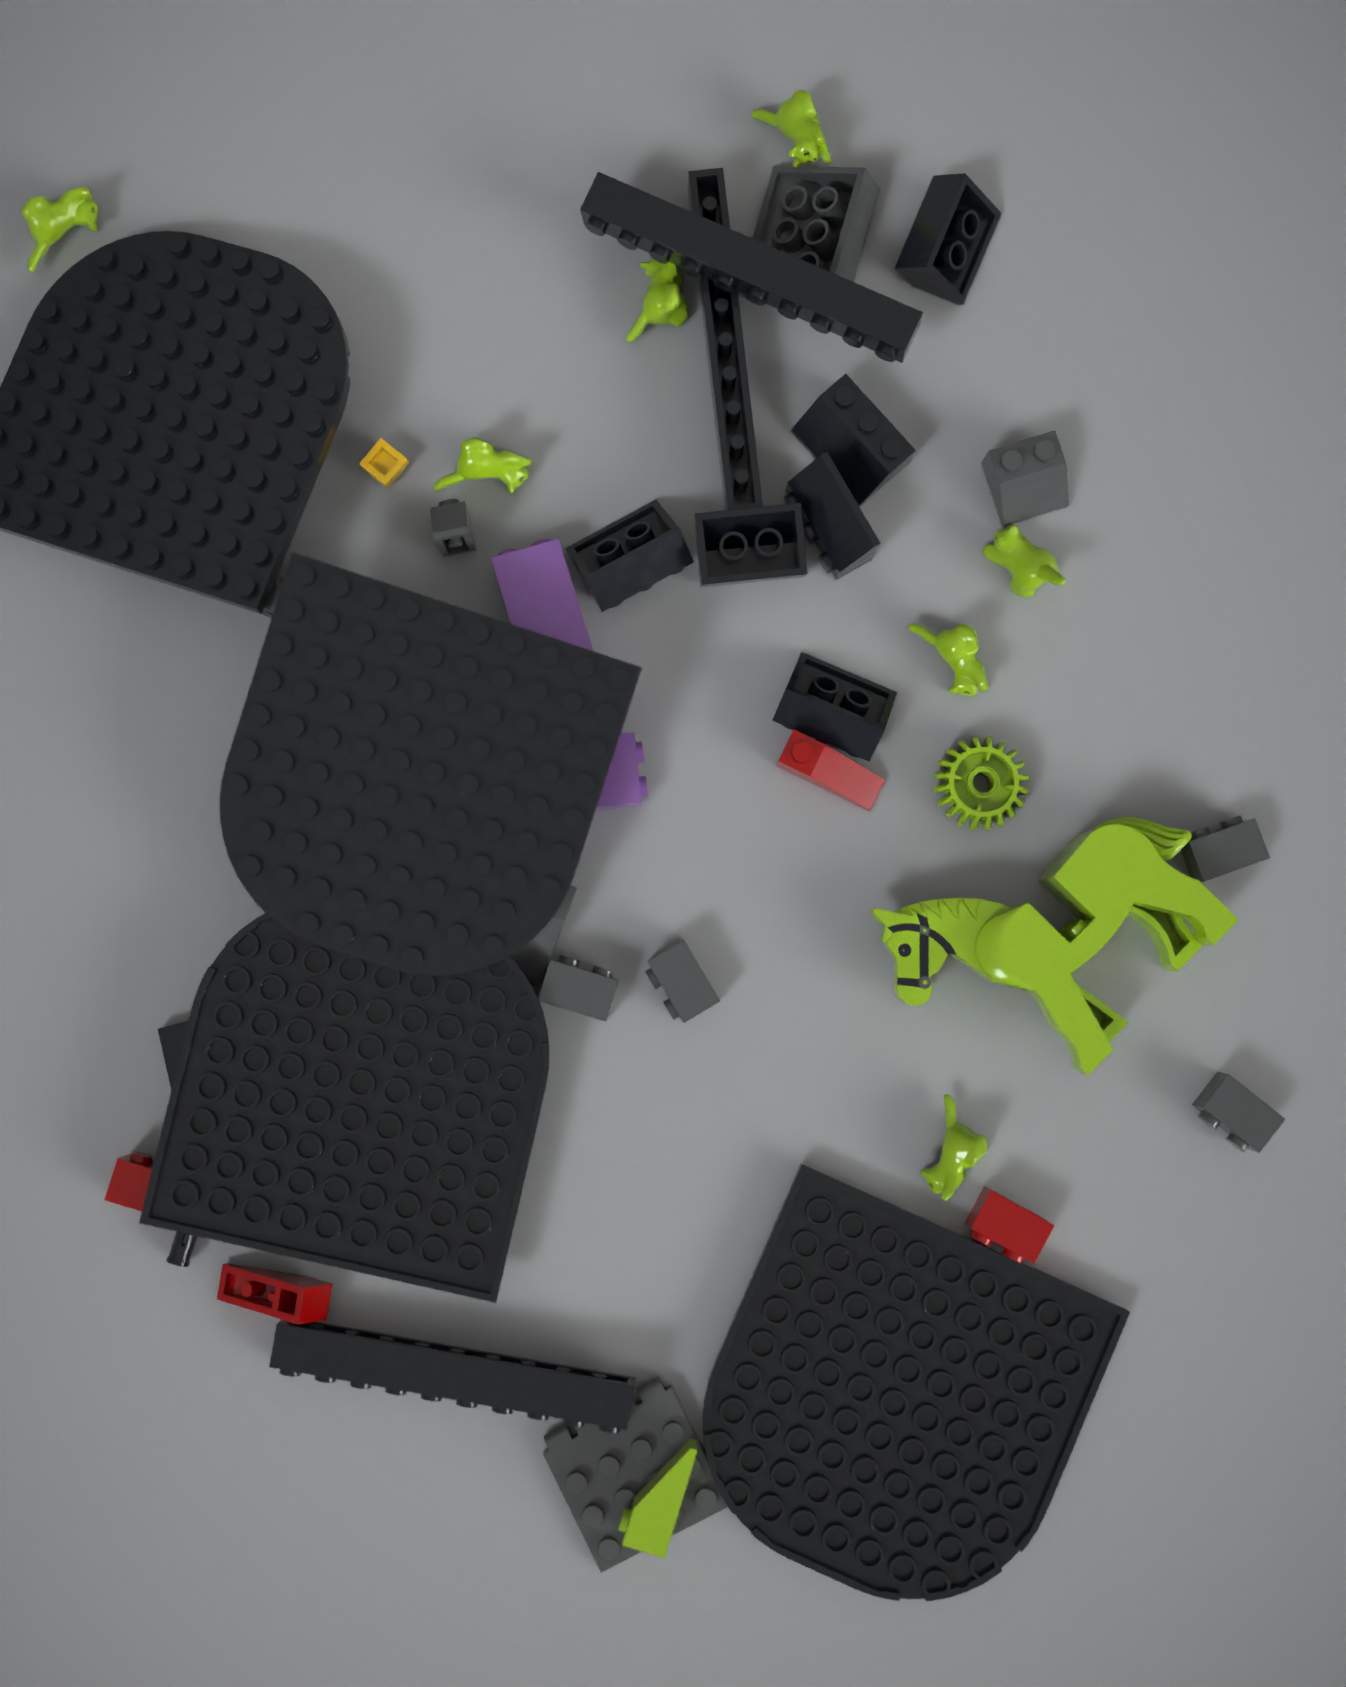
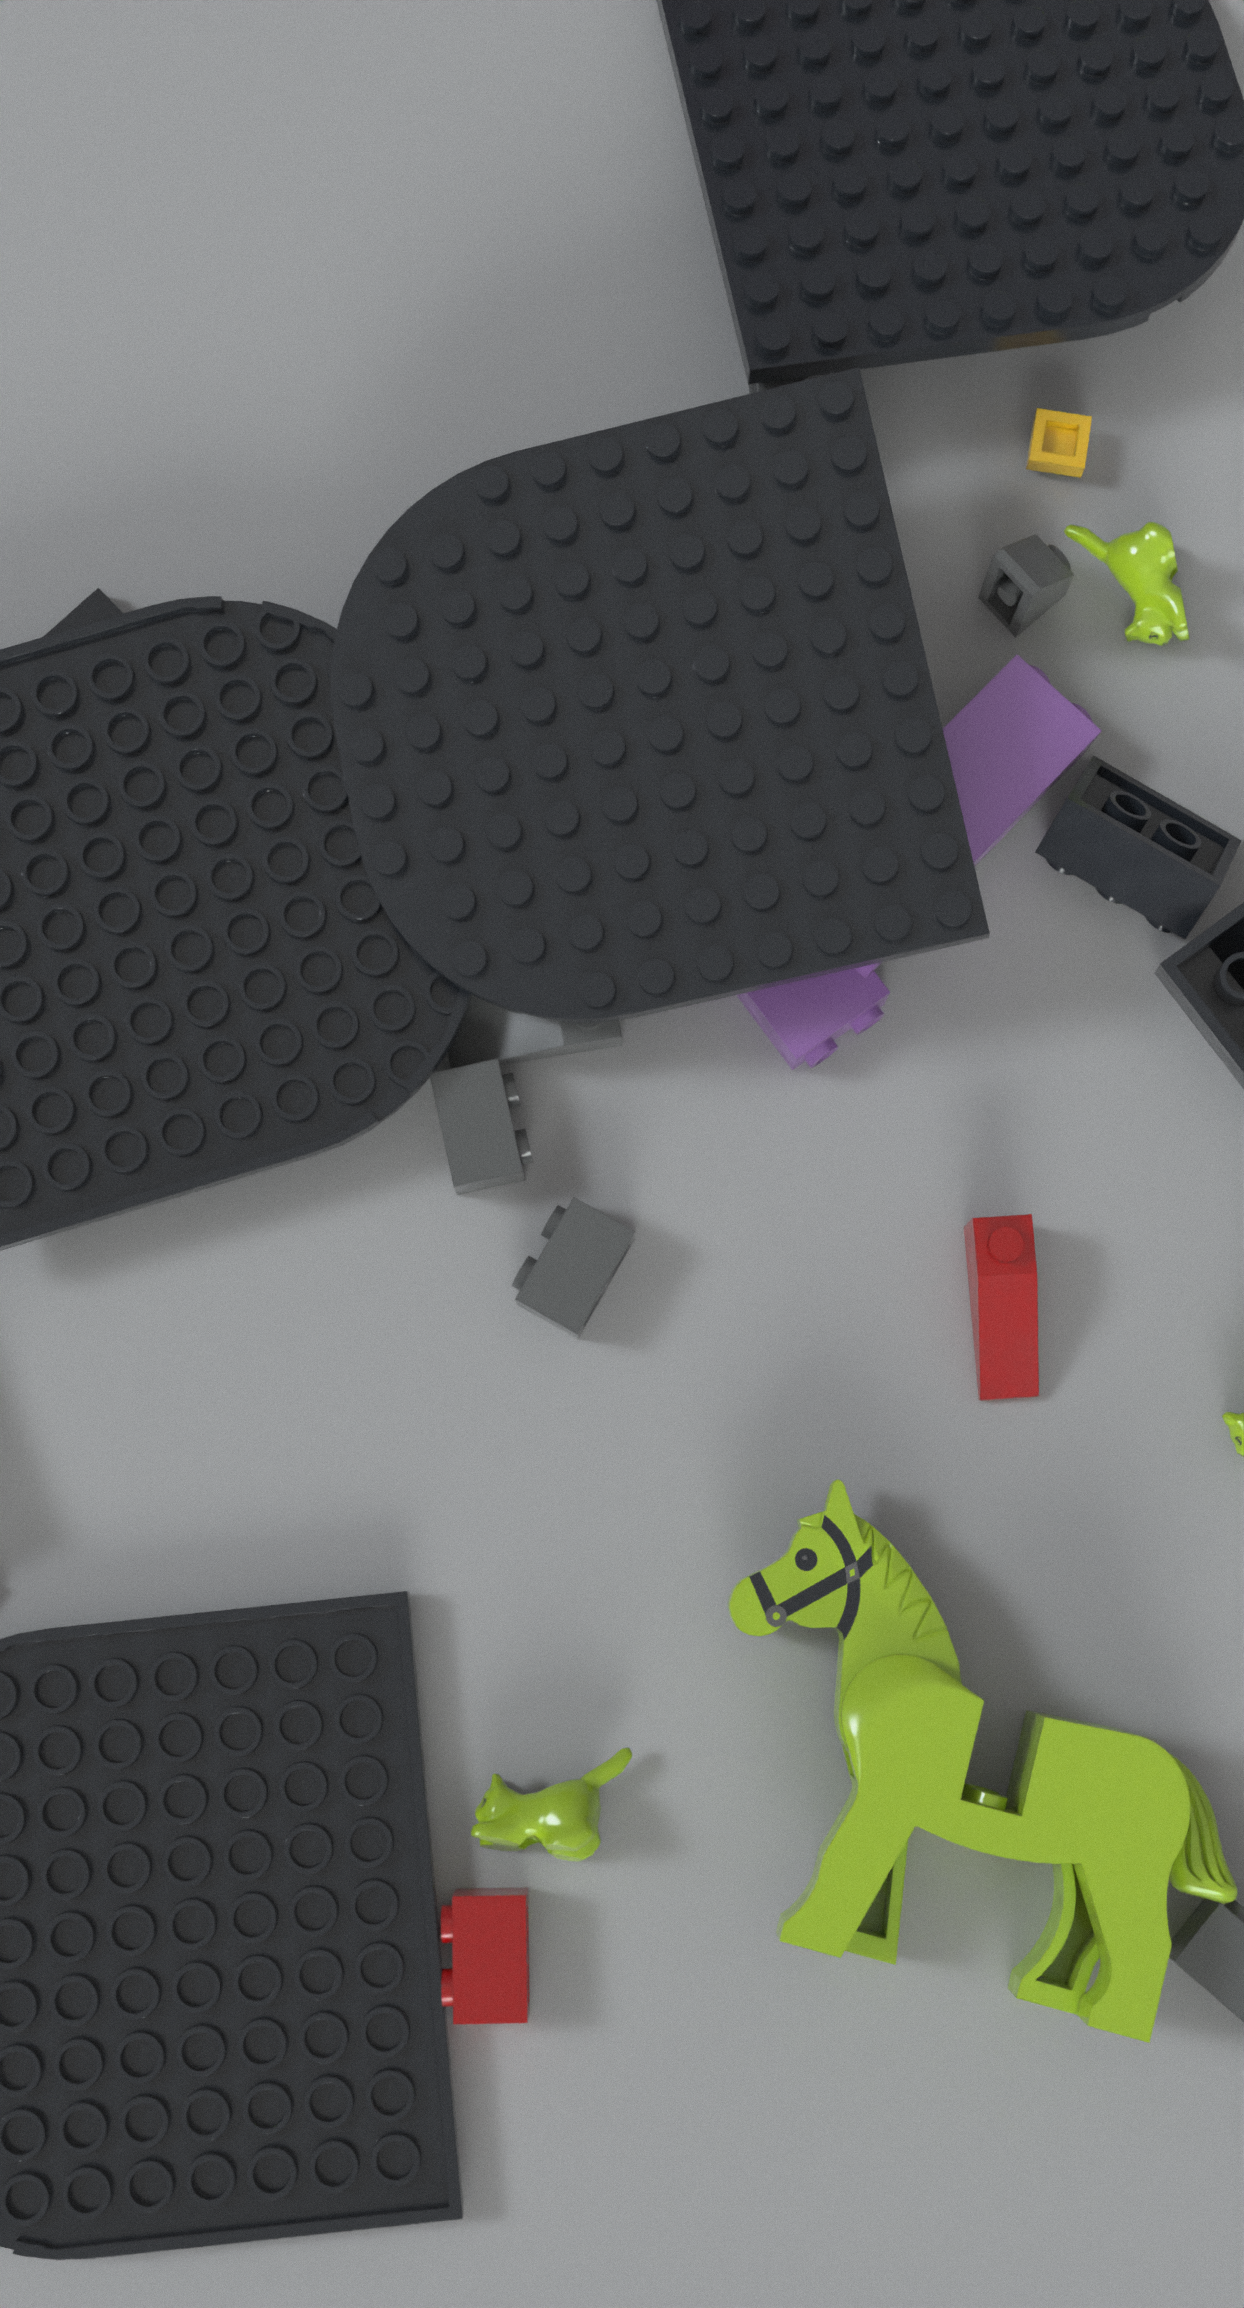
camera: 65 degrees right, 5 degrees down
(835, 707) = (1100, 1260): black slope -> none
(999, 772) = (1154, 1532): lime gear -> none
(1238, 1112) = (856, 2218): dark grey brick -> none

